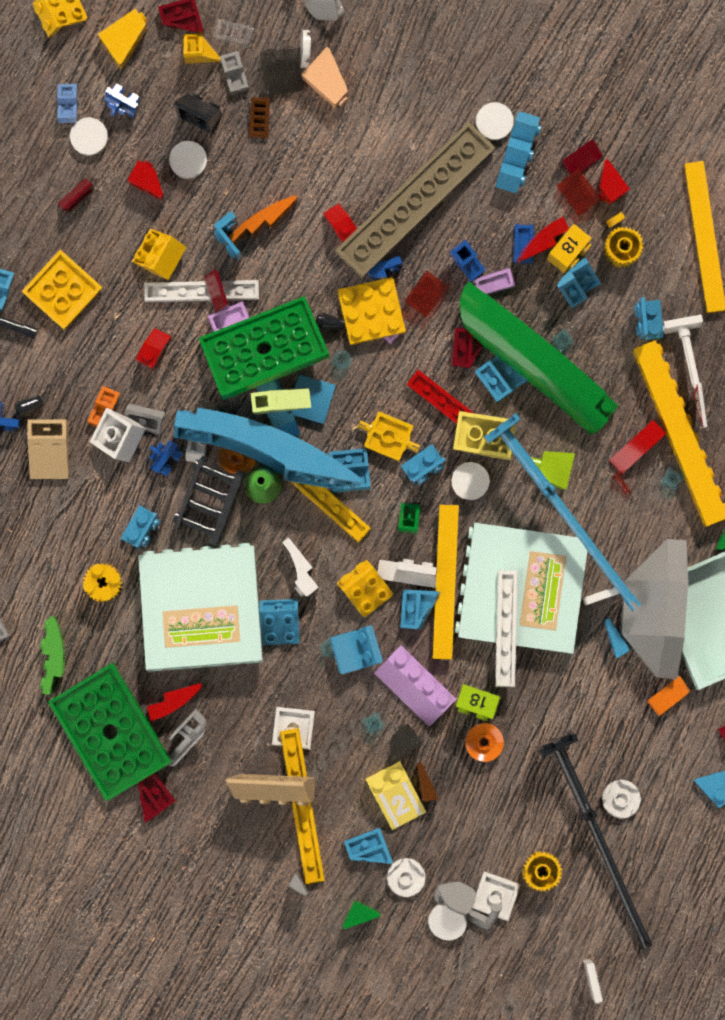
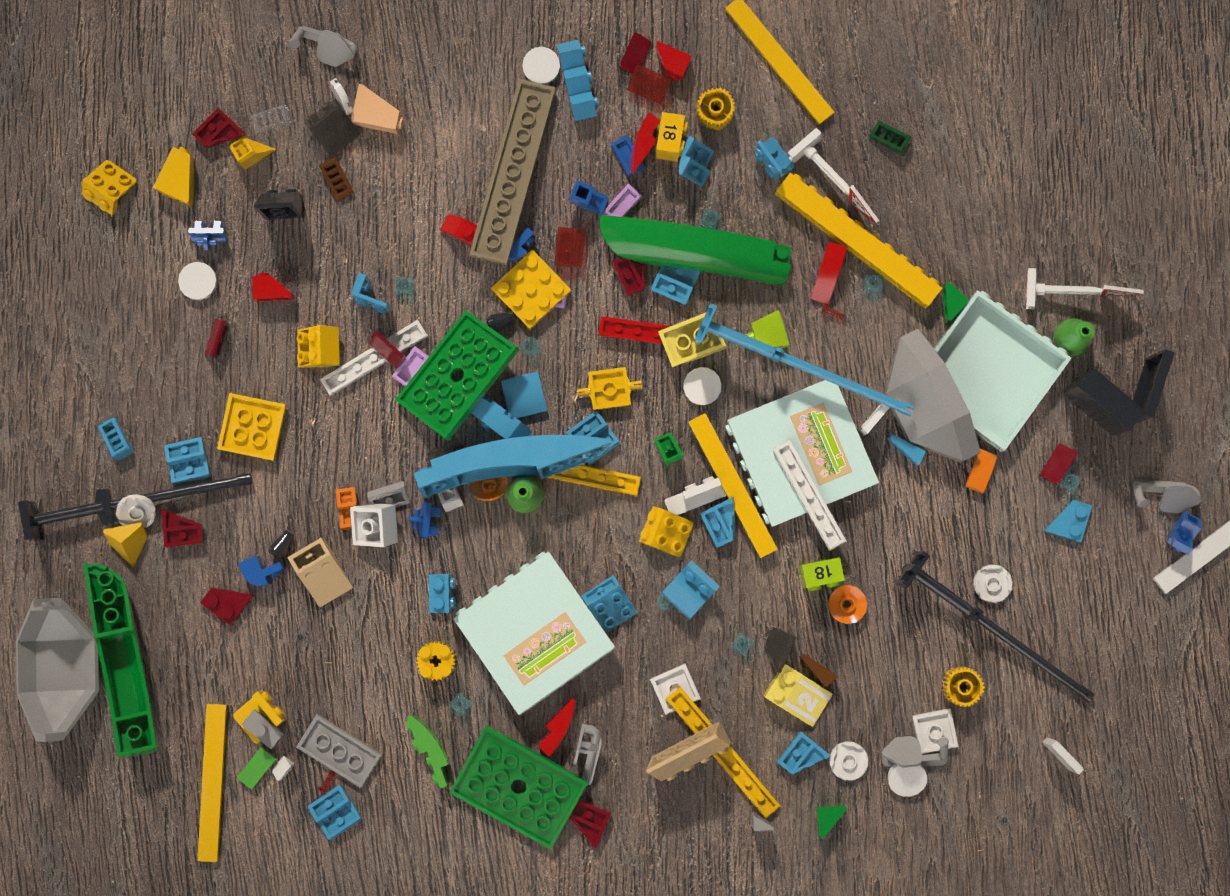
camera: 30 degrees left, 0 degrees up
(67, 103) = (162, 263): medium blue slope -> none
(106, 632) = (460, 709): none -> clear light blue plate
(153, 349) = (361, 432): red slope -> none
(188, 159) = (295, 251): white tile -> none
(227, 498) = (501, 523): black fence -> none
(234, 73) = (292, 153): light grey slope -> none
(264, 249) = (399, 285): none -> clear light blue plate
(269, 216) = (394, 258): orange slope -> none
(280, 401) = (498, 412): yellowish green slope -> none
(305, 584) = (611, 557): white slope -> none
(415, 686) = (759, 590): lavender slope -> none
(423, 464) = (653, 396): dark azure bracket -> none
(615, 220) = (694, 89): yellow tile -> none

